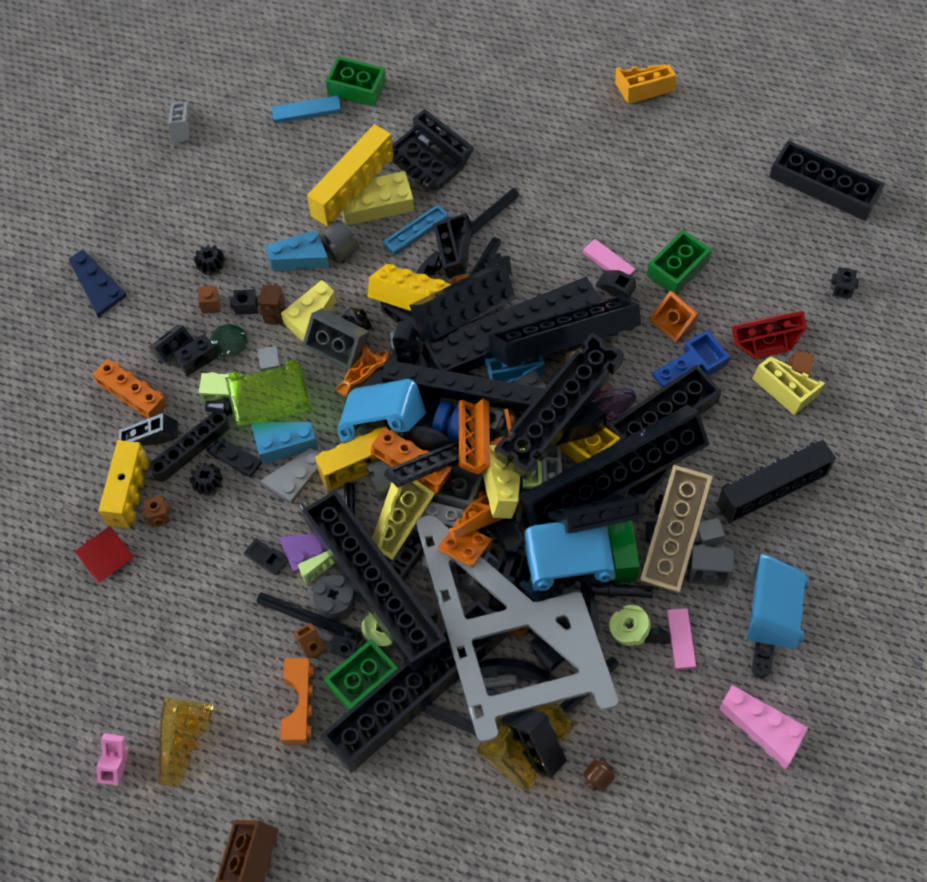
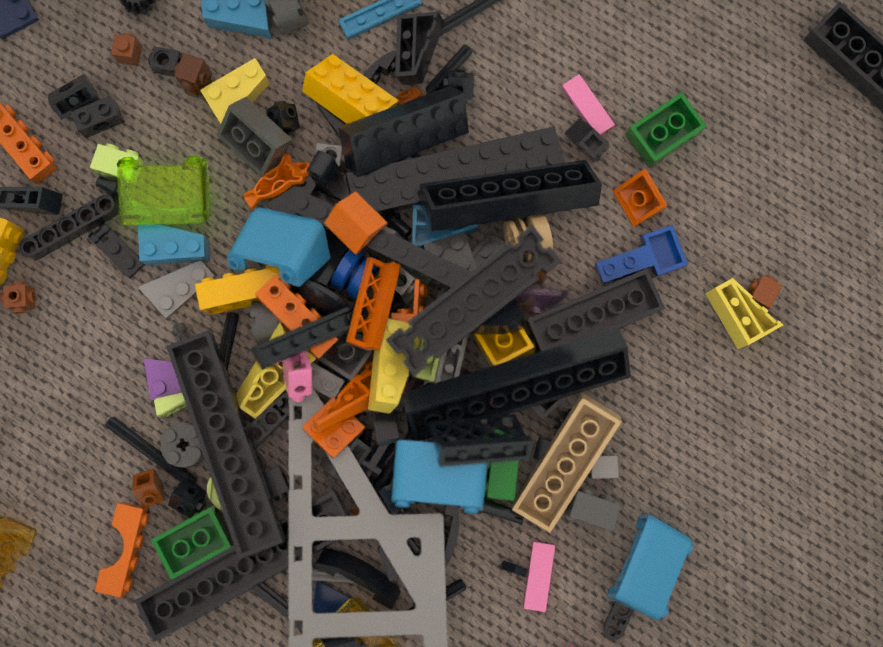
camera: 10 degrees right, 20 degrees up
(200, 483) = (87, 274): black gear -> none
(229, 340) = (139, 104): clear green dish -> none
(265, 557) = (126, 376): black slope -> none
(269, 358) = (173, 150): light grey brick -> none
(423, 503) = (298, 381): none -> bright pink torso
(442, 372) = (355, 222): none -> orange slope
(637, 633) = (501, 552): yellowish green plate -> none
(769, 334) = (741, 244): red wedge -> none
(775, 480) = (697, 427): black brick -> none
(844, 282) = (846, 200): black brick -> none

